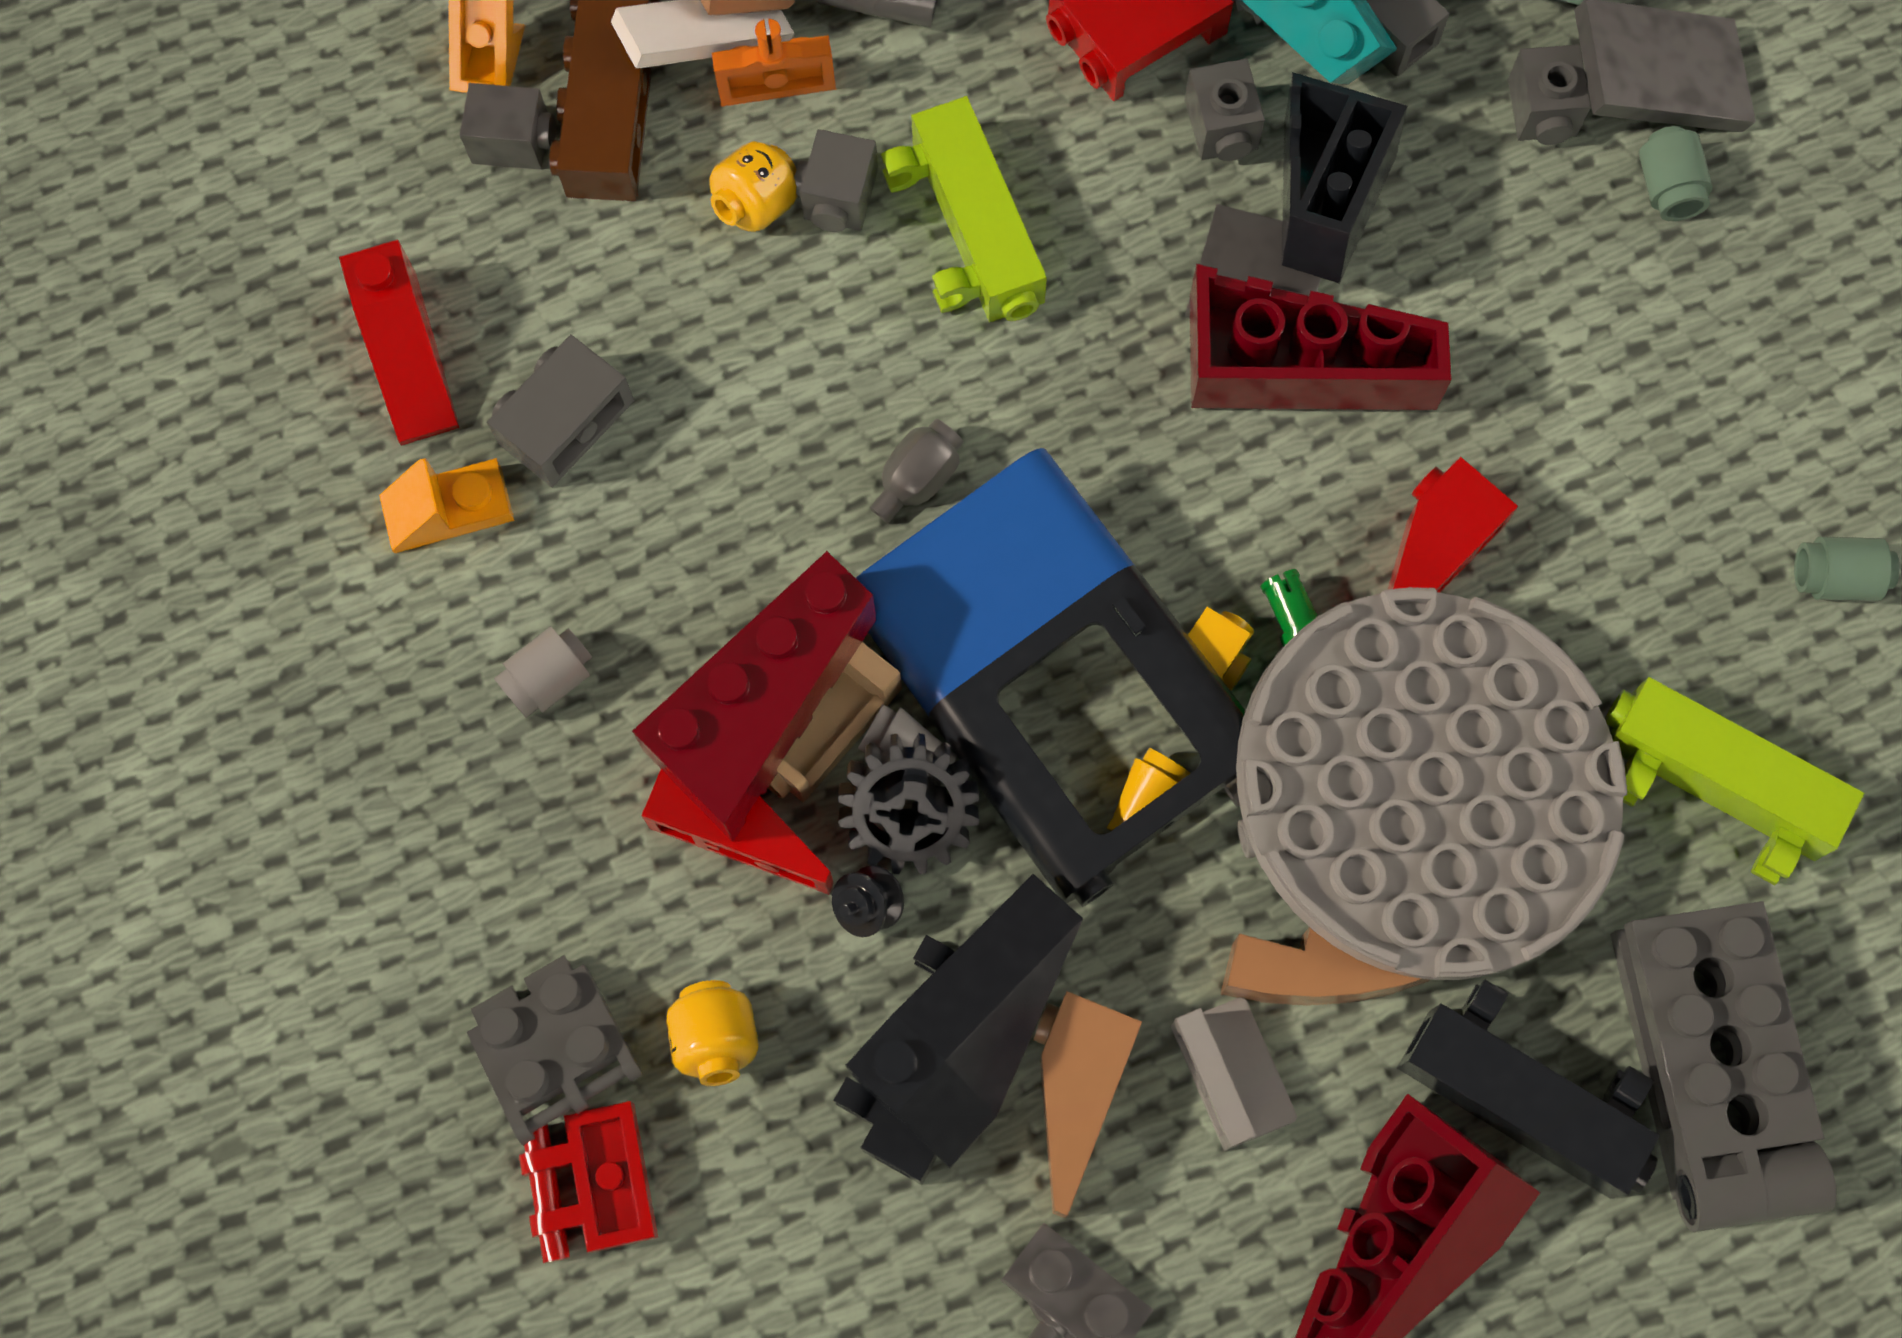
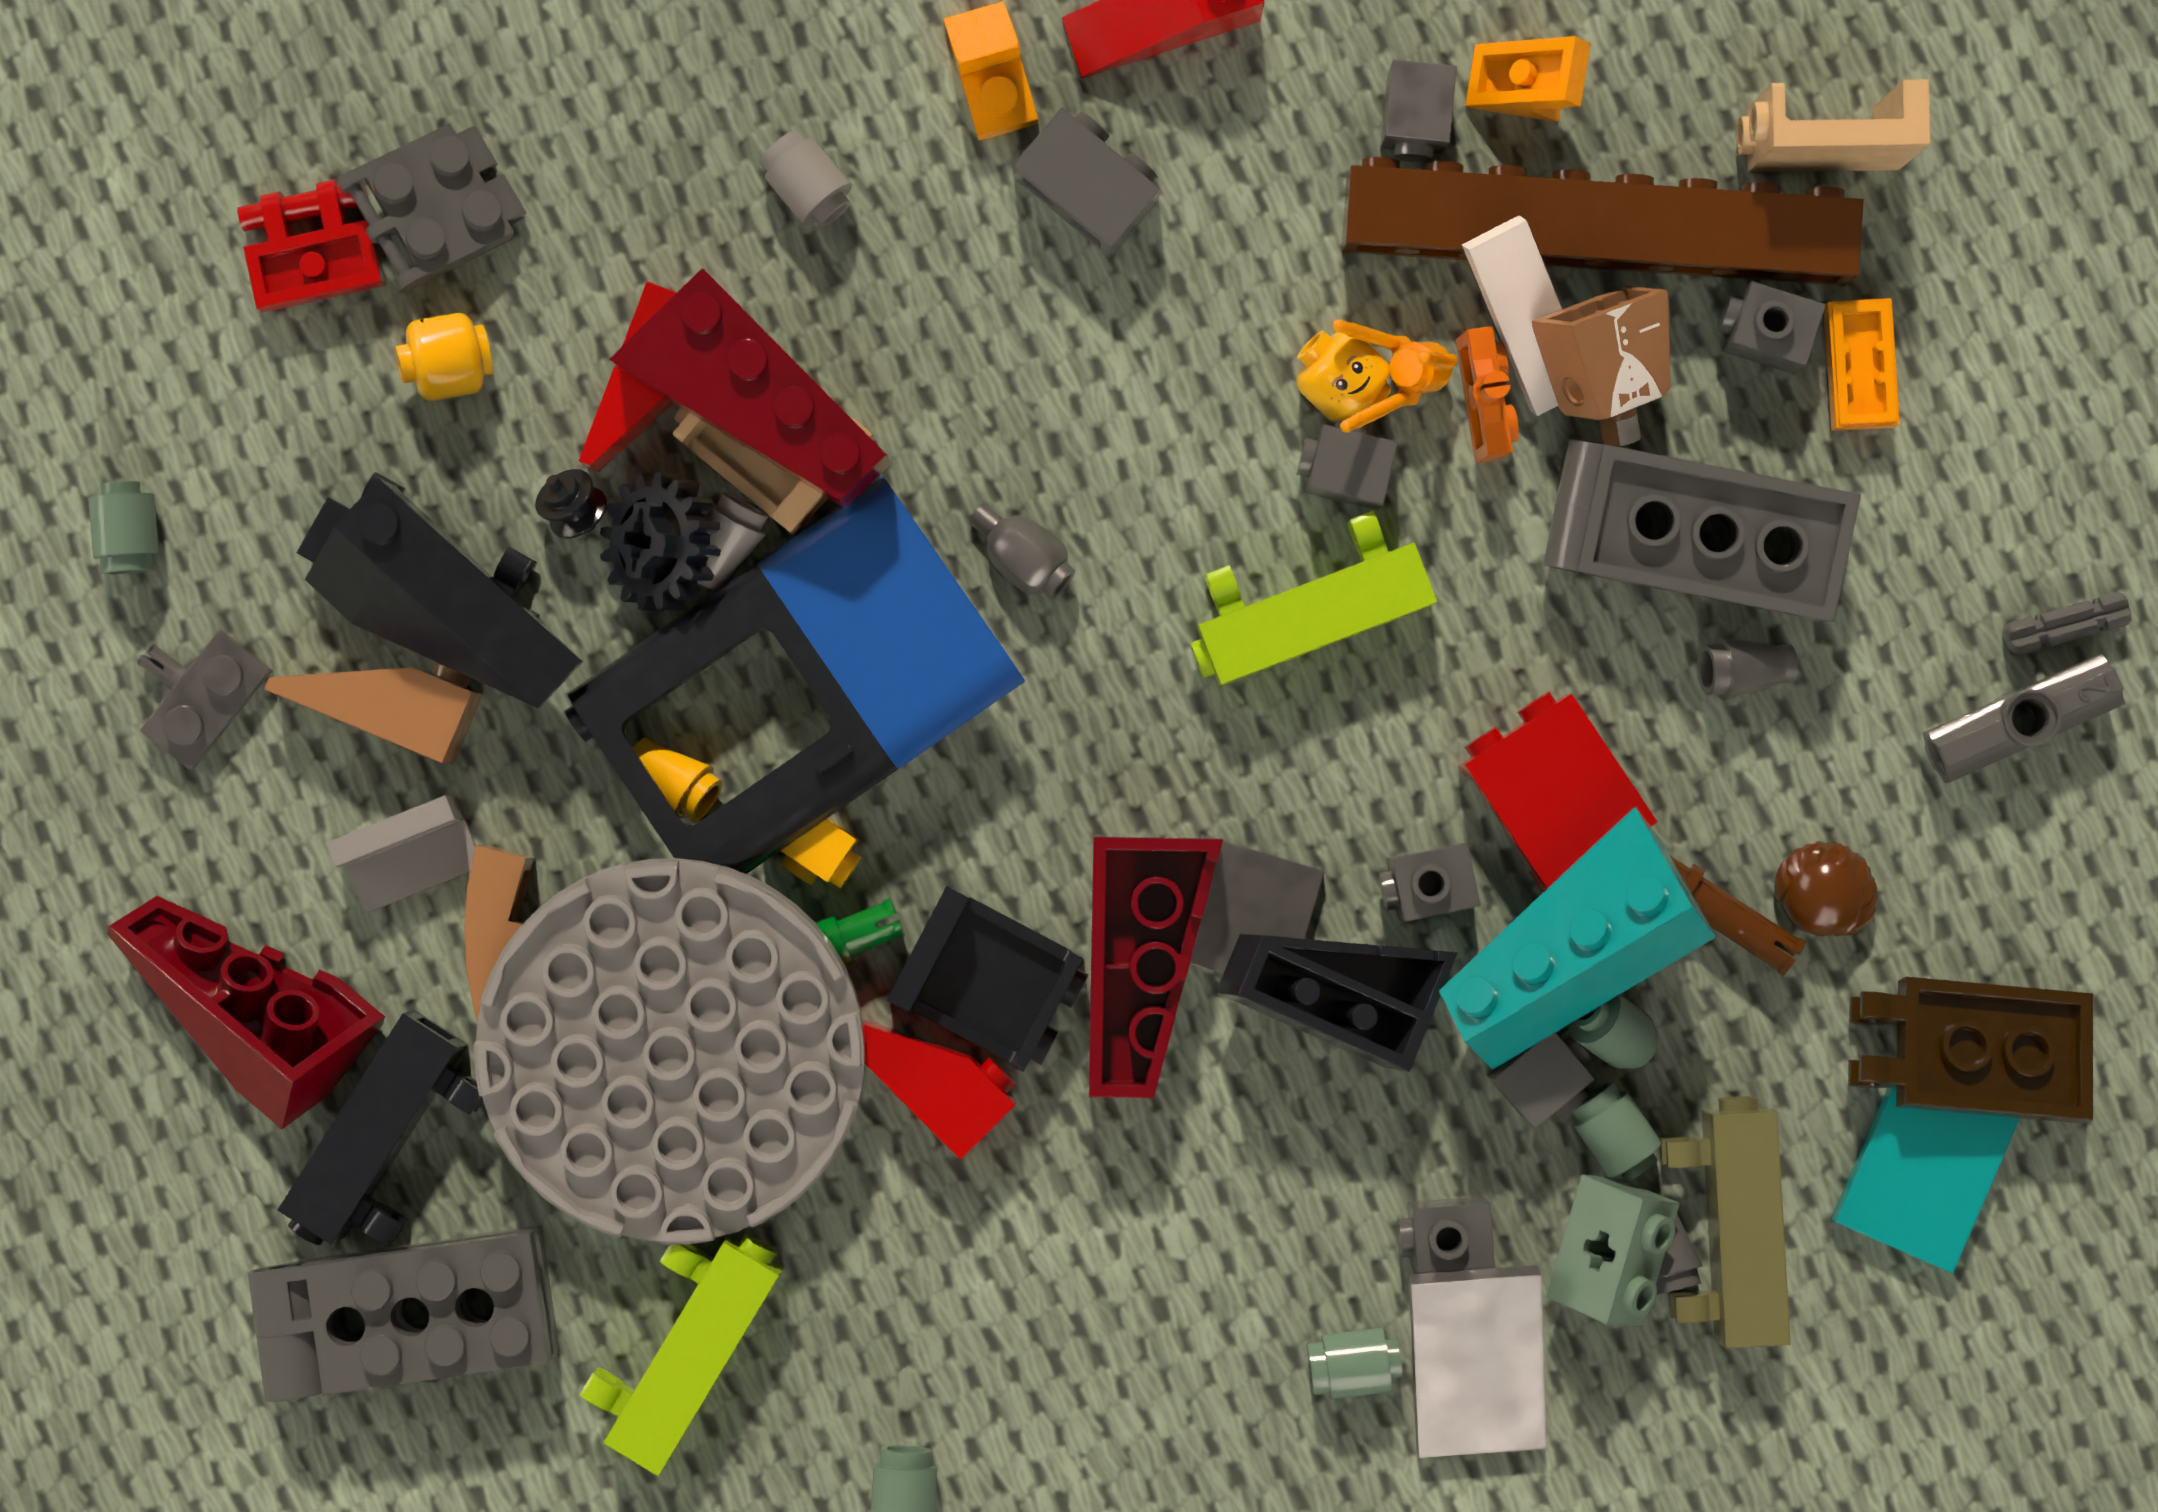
camera: 90 degrees right, 15 degrees up
(749, 122) = (1413, 368): none -> light orange plant
(1335, 495) = (988, 979): none -> black panel

